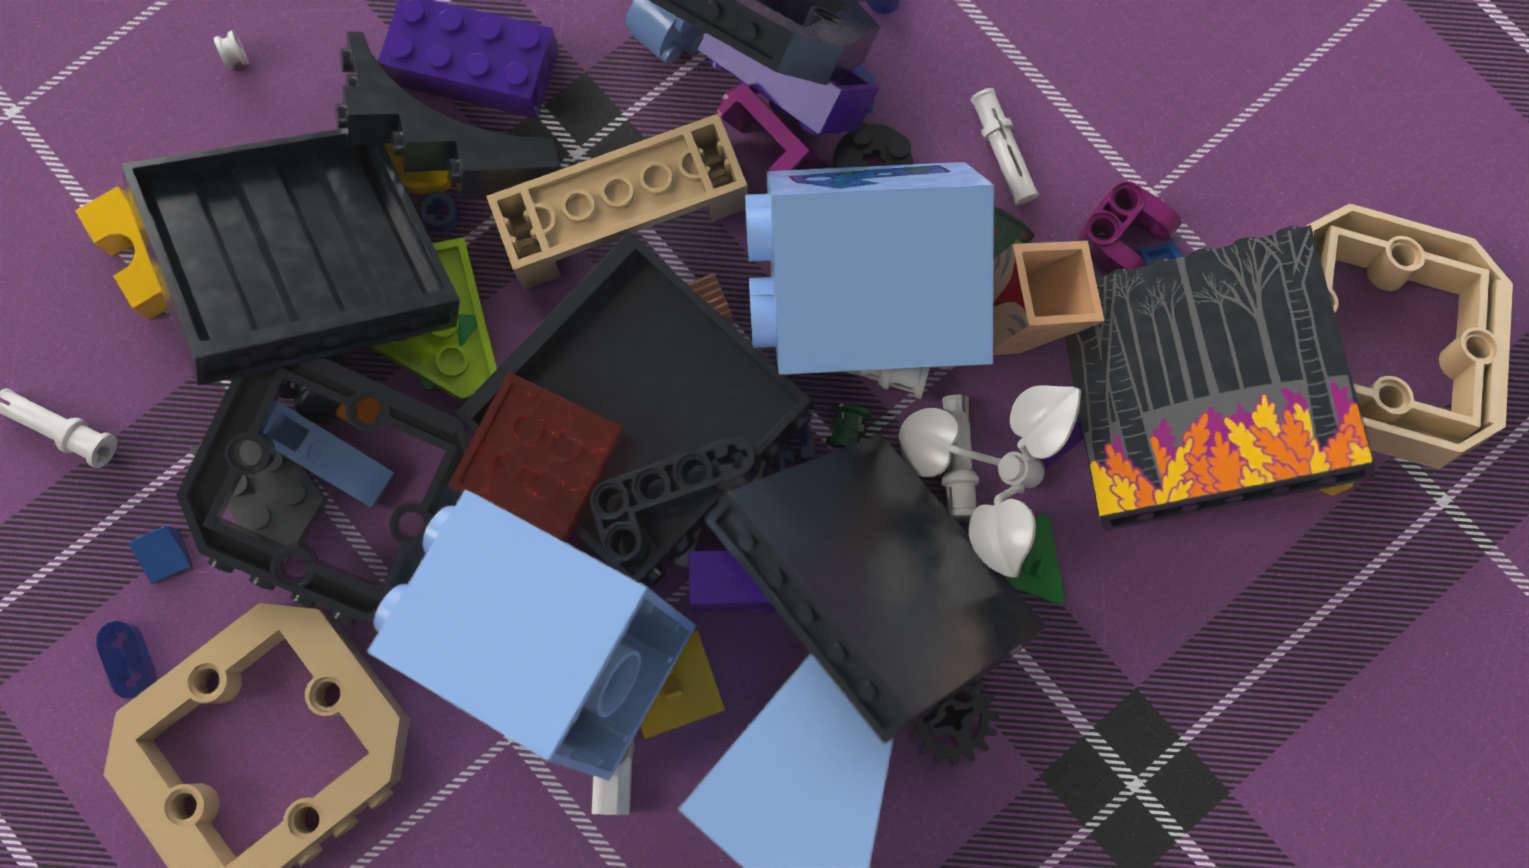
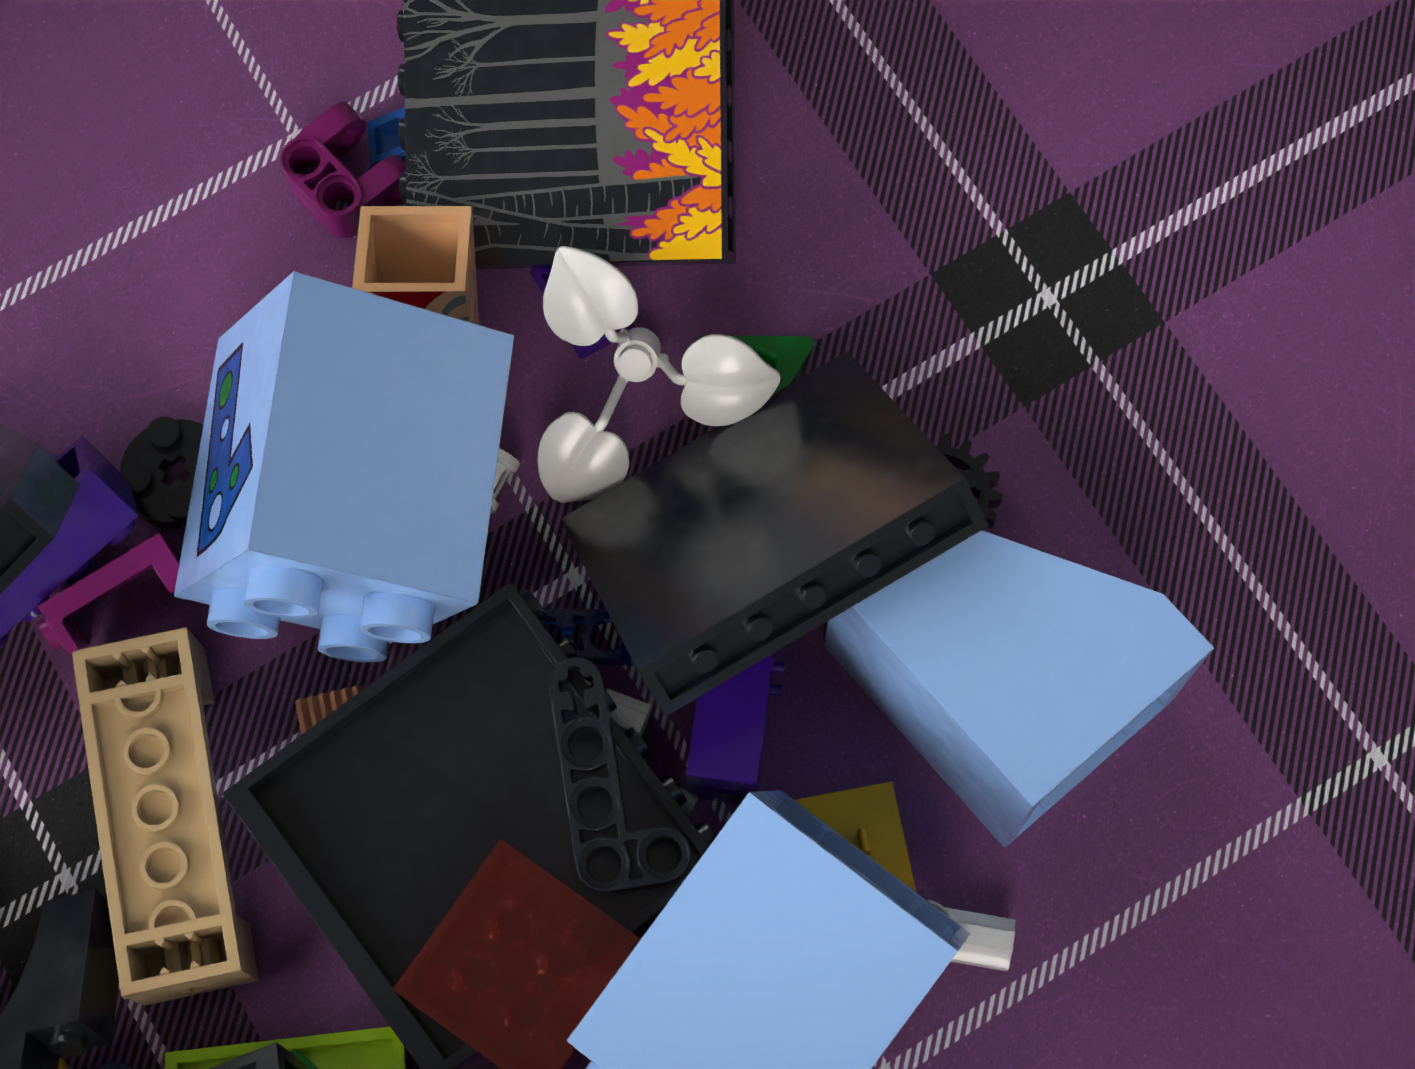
camera: 80 degrees left, 5 degrees down
(848, 425) = (542, 562): dark green bush -> none
(960, 477) = (638, 430): white pin -> none
(998, 132) = (182, 302): white pin -> none

